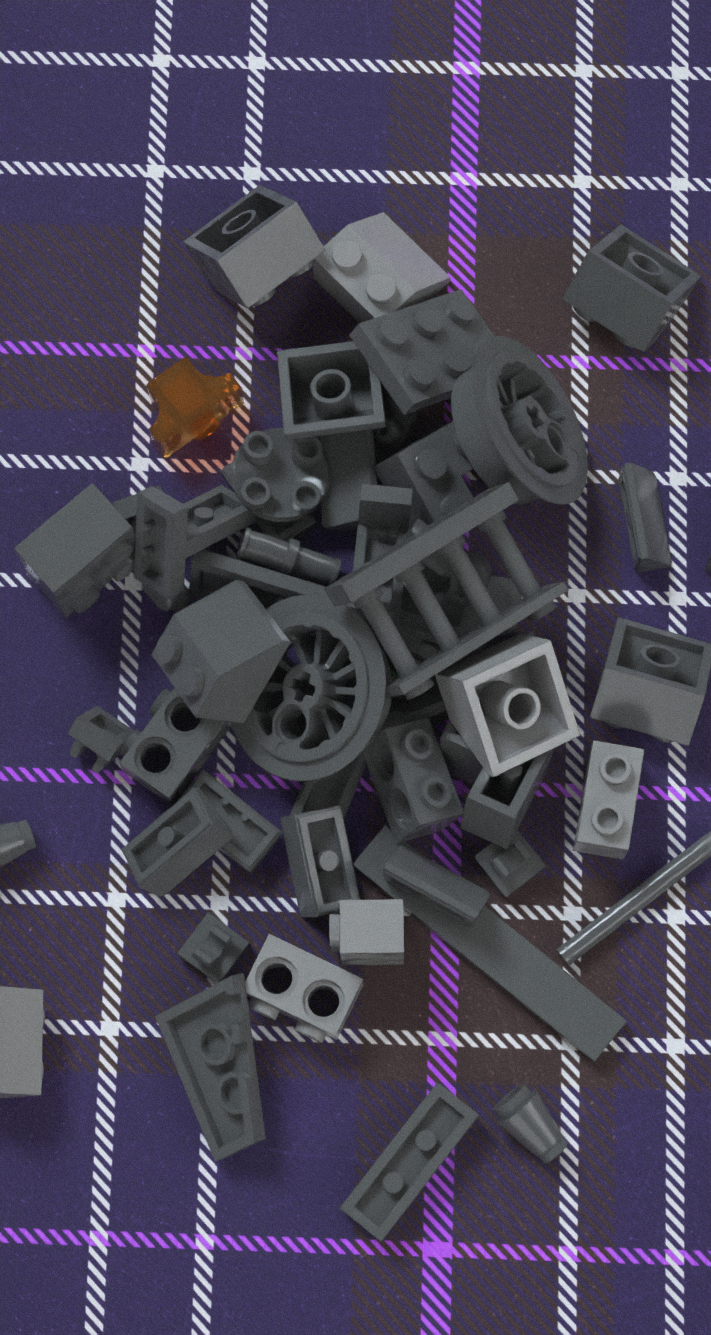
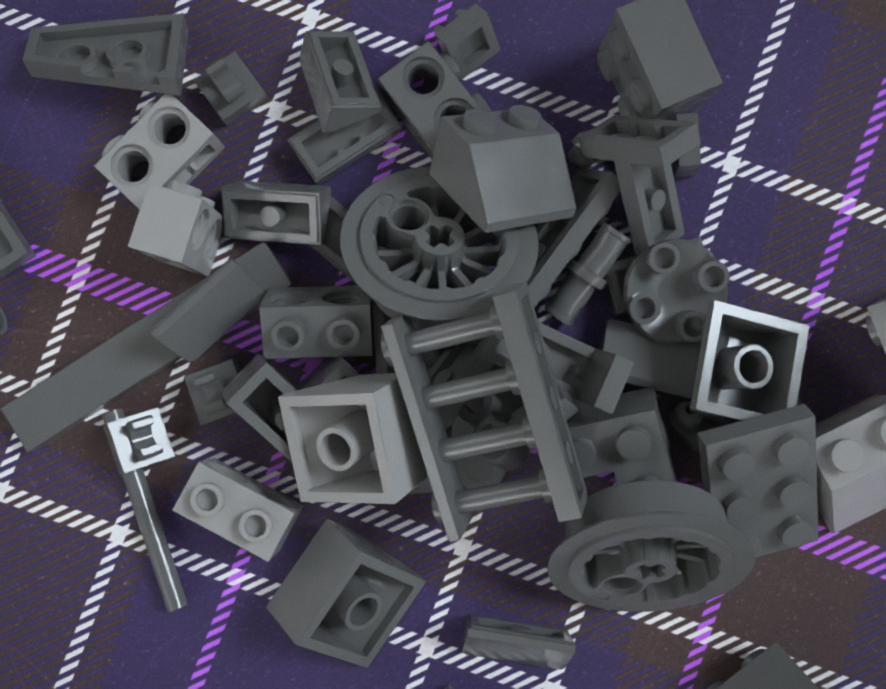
camera: 105 degrees right, 10 degrees up
(189, 405) = (777, 224): clear orange brick -> none
(580, 917) = (138, 441): none -> tile

